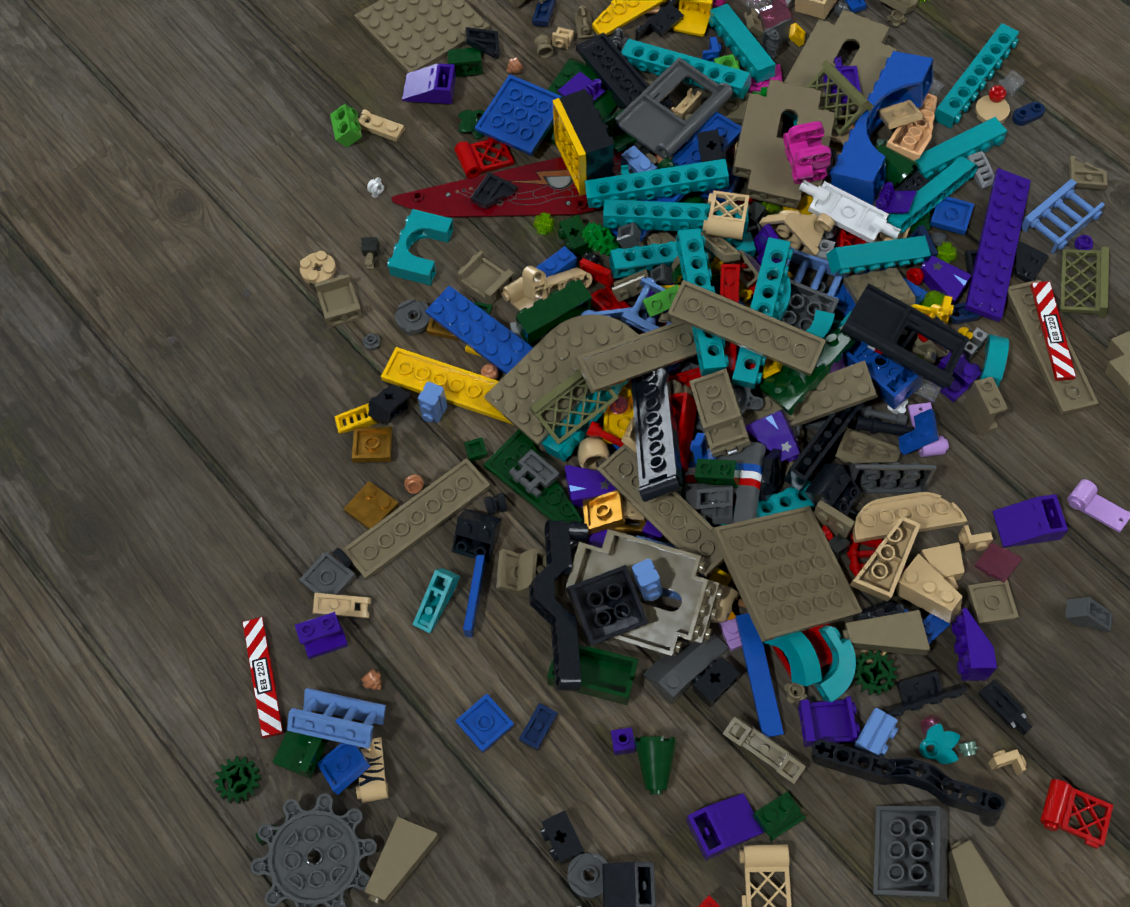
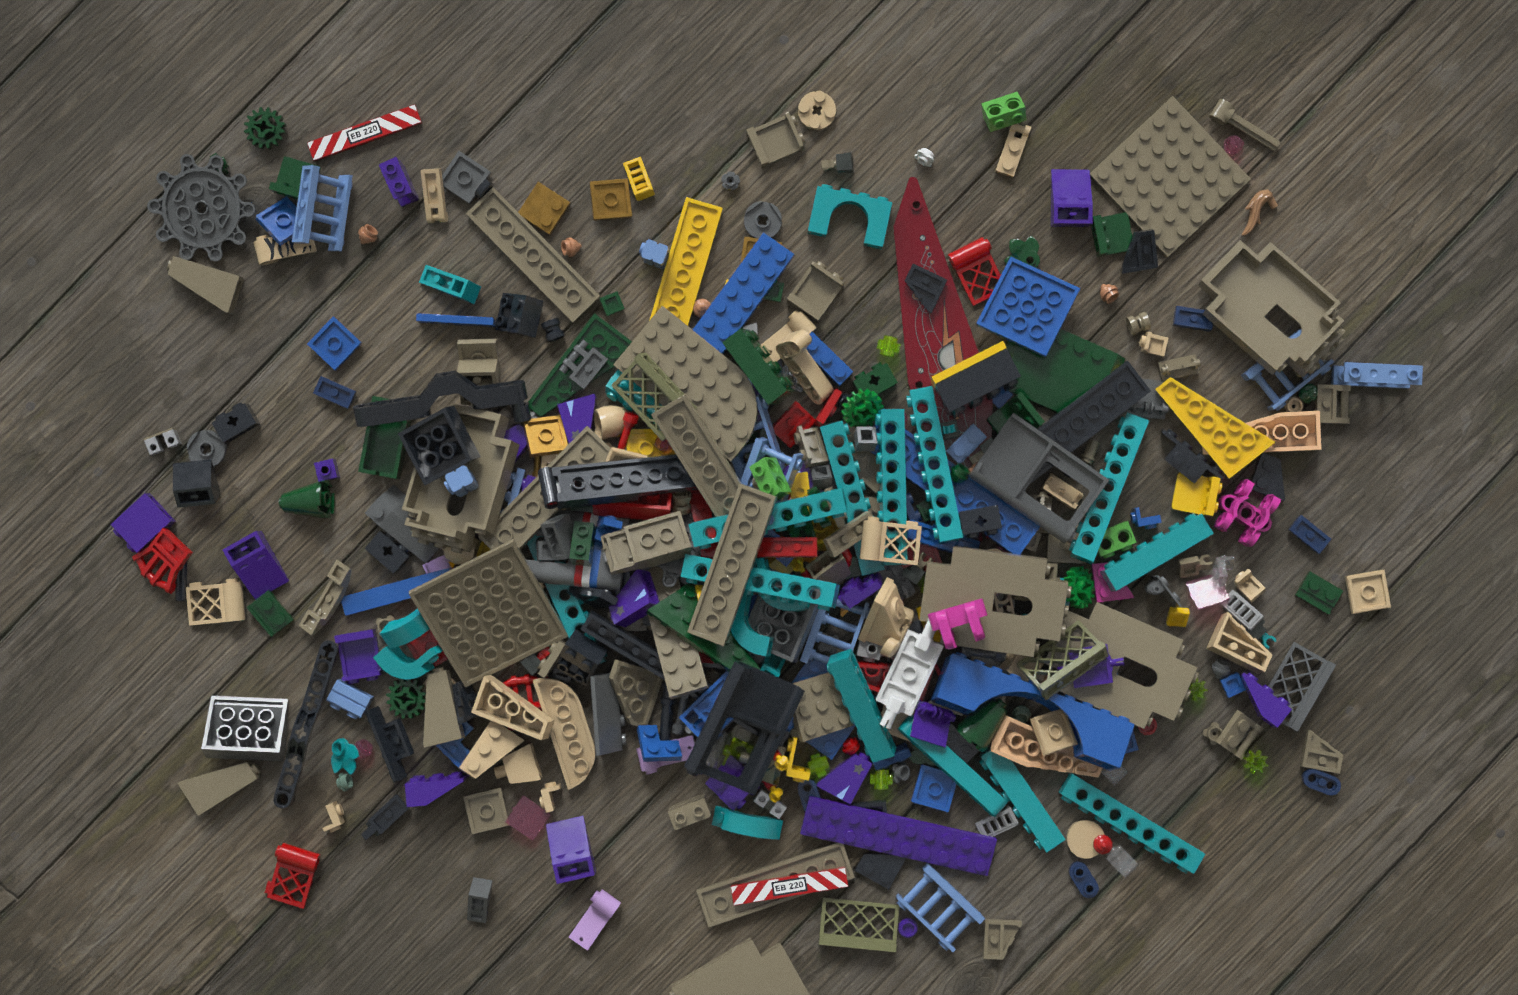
camera: 80 degrees right, 25 degrees up
(389, 404) = (641, 208): black brick -> none
(582, 82) = (1068, 372): dark purple hinge -> none

